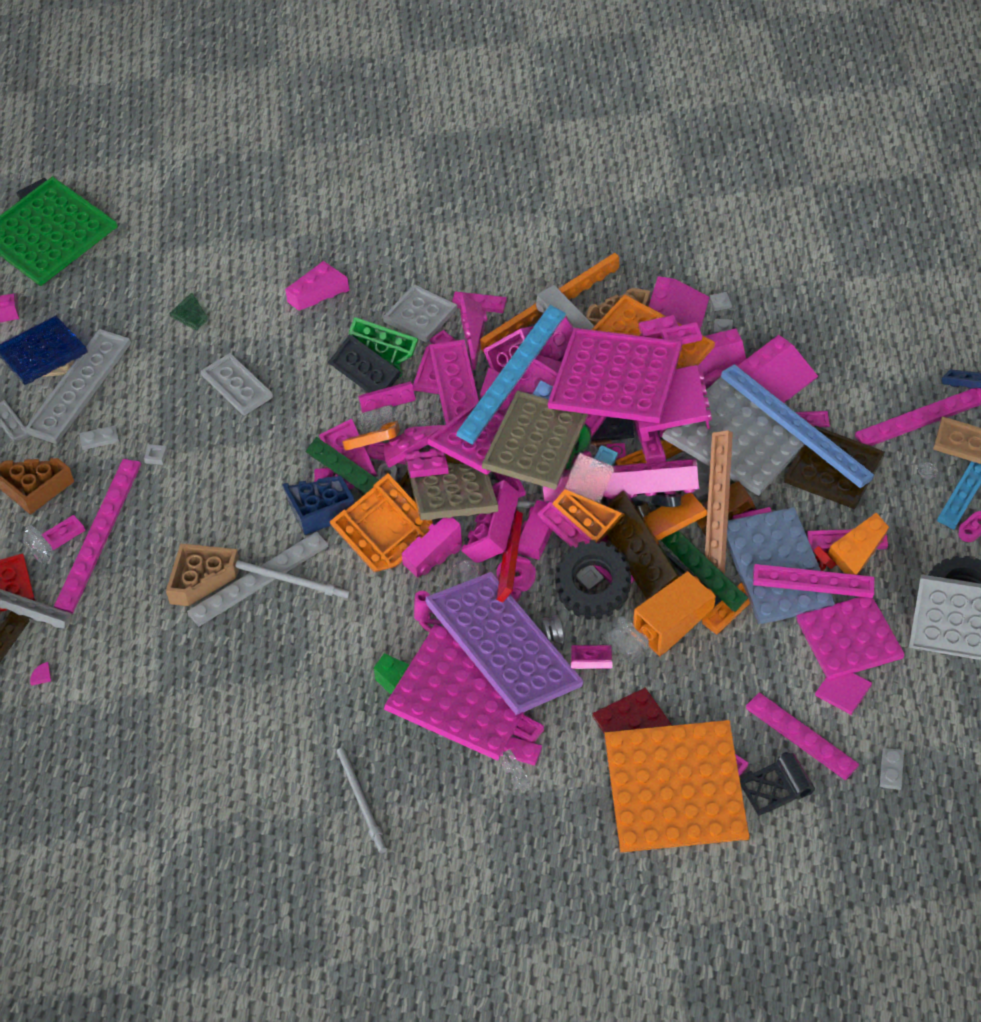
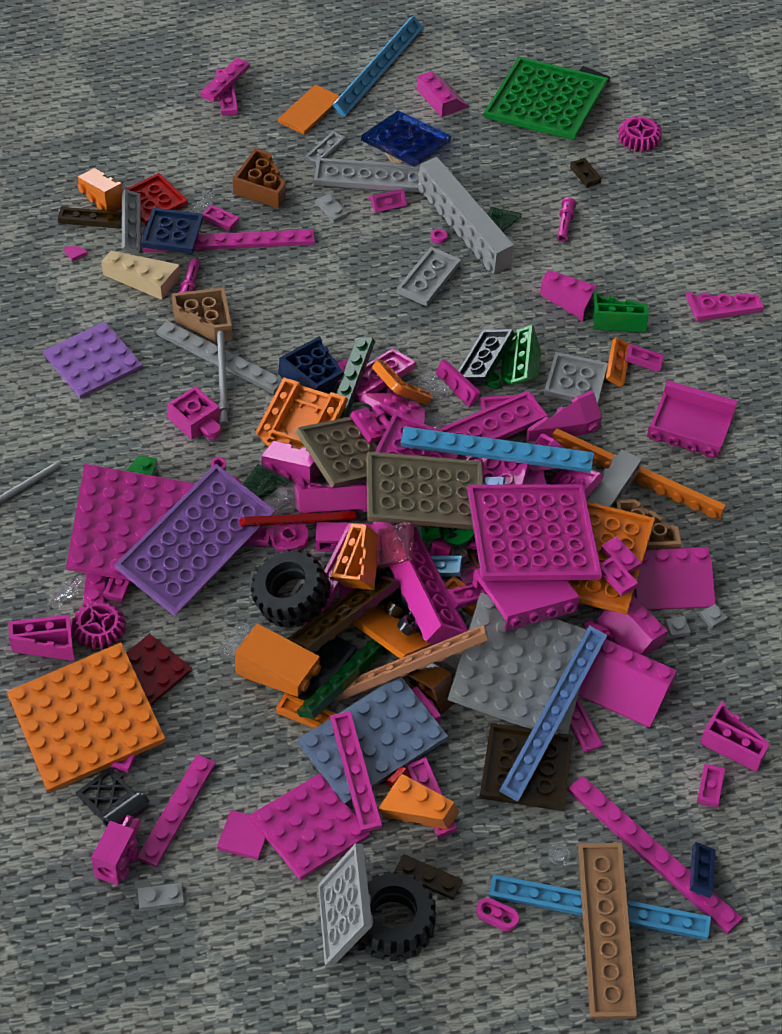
camera: 65 degrees right, 0 degrees up
(67, 573) = (172, 230): none -> dark blue plate
(110, 617) = (141, 273): none -> tan wedge
(114, 388) = (388, 200): none -> dark pink panel
(136, 178) = (640, 133): none -> dark pink gear
(147, 581) = (190, 279): none -> dark pink pin
(155, 454) = (326, 248): light grey plate -> none
(163, 232) = (585, 172): none -> dark brown plate
(182, 328) = (465, 216): none -> light grey brick
(185, 363) = (439, 236): none -> dark pink tile
(208, 690) = (92, 359): none -> medium lavender plate
(210, 260) = (566, 214): none -> dark pink pin
(336, 602) = (195, 414): none -> dark pink brick
(362, 258) = (618, 315): none -> green wedge
(380, 190) = (713, 307): none -> dark pink wing
(413, 277) = (617, 365): none -> orange plate
(419, 258) = (644, 358): none -> dark pink plate
(440, 576) = (264, 481): none -> clear green wing
(441, 337) = (551, 405): dark pink tile -> none
(488, 302) = (613, 420): dark pink plate -> none
(503, 249) = (692, 419): none -> dark pink panel
(553, 629) = (229, 576): flat silver wheel -> none
(571, 798) = (43, 637): none -> dark pink wedge
(577, 745) = (100, 616): none -> dark pink gear
(591, 656) = (208, 614): dark pink tile -> none
(842, 785) = (116, 851): none -> dark pink brick
(852, 323) = (733, 739): none -> dark pink wedge
(889, 353) = (710, 785): none -> dark pink plate
(923, 565) = (434, 878): none -> dark brown plate

